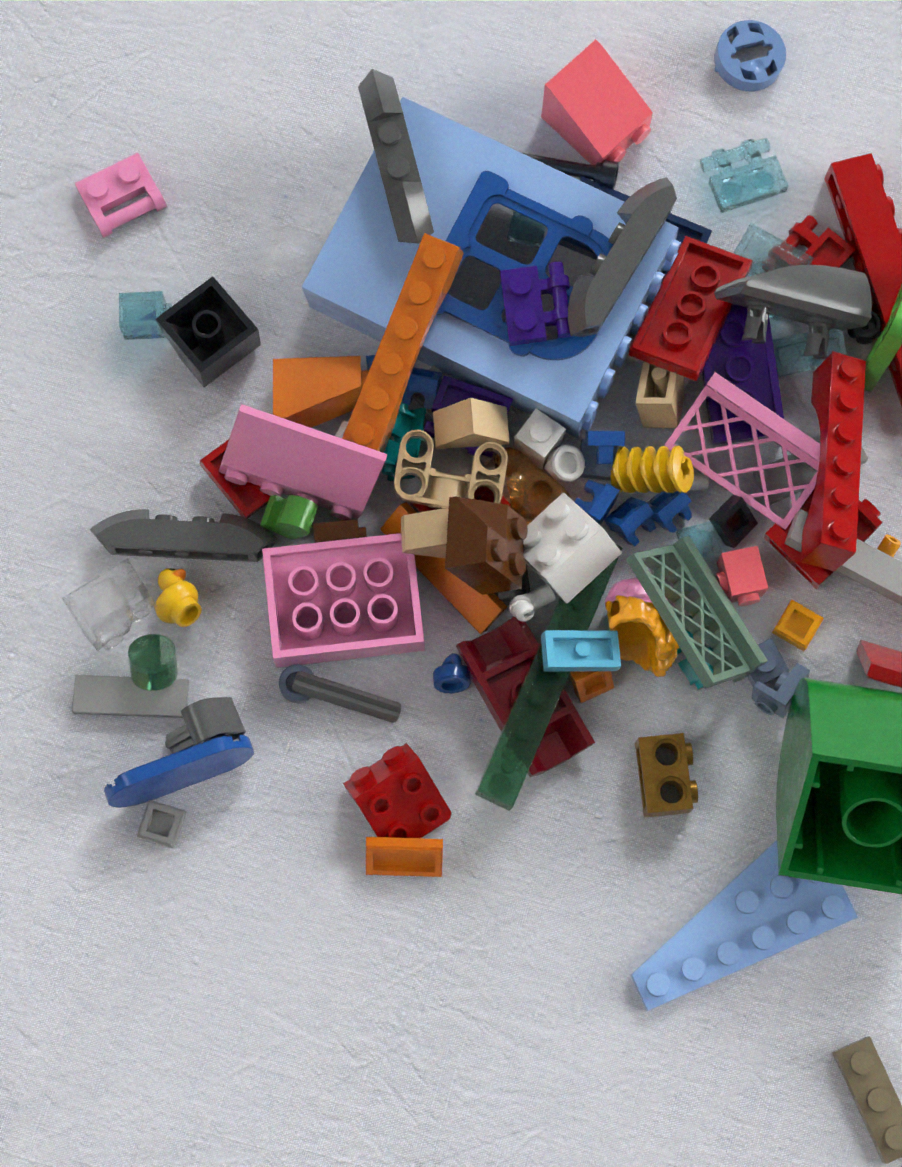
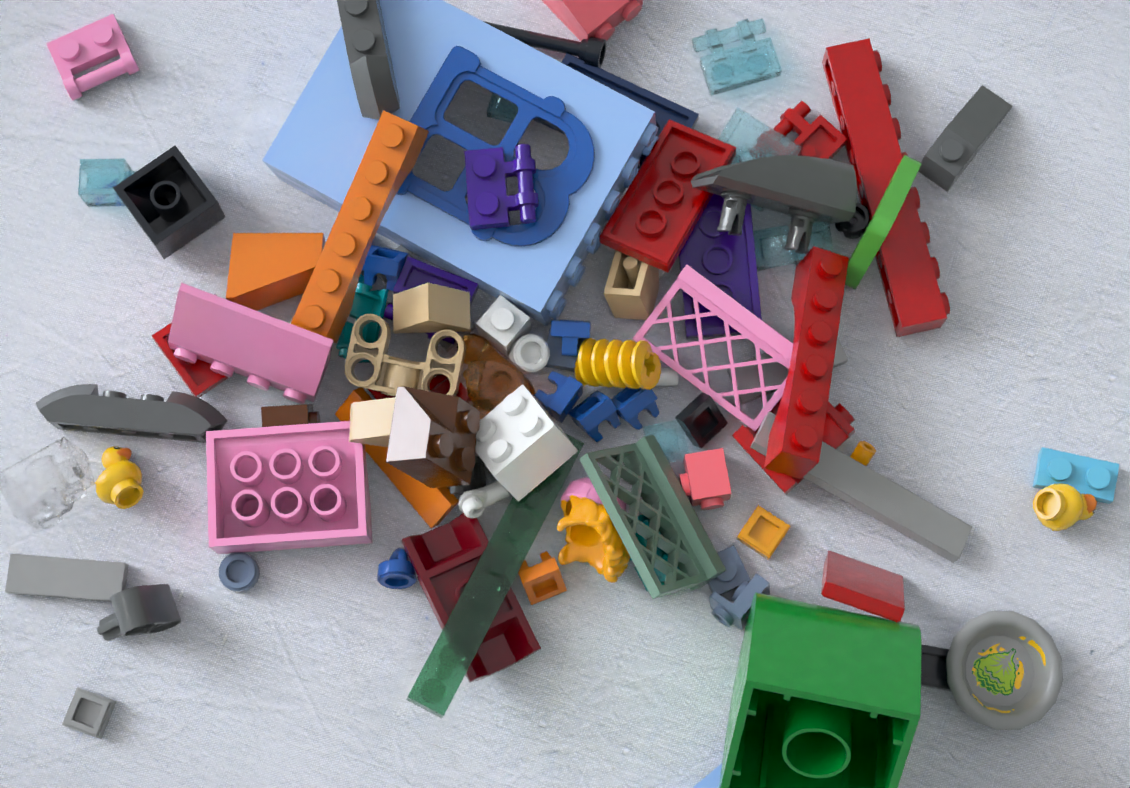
camera: 10 degrees right, 0 degrees up
(153, 662) = (89, 544): clear green piece -> none
(178, 771) = (105, 660): blue tile -> none
(289, 516) = (239, 397): bright green leg -> none
(346, 696) = (286, 588): dark grey axle -> none
(398, 795) = (332, 698): red bracket -> none
(404, 856) = (335, 759): orange tile -> none
(580, 650) = (528, 552): medium azure plate -> none
(596, 296) = (563, 181): dark grey brick -> none
(655, 775) = (602, 686): pearl gold brick -> none

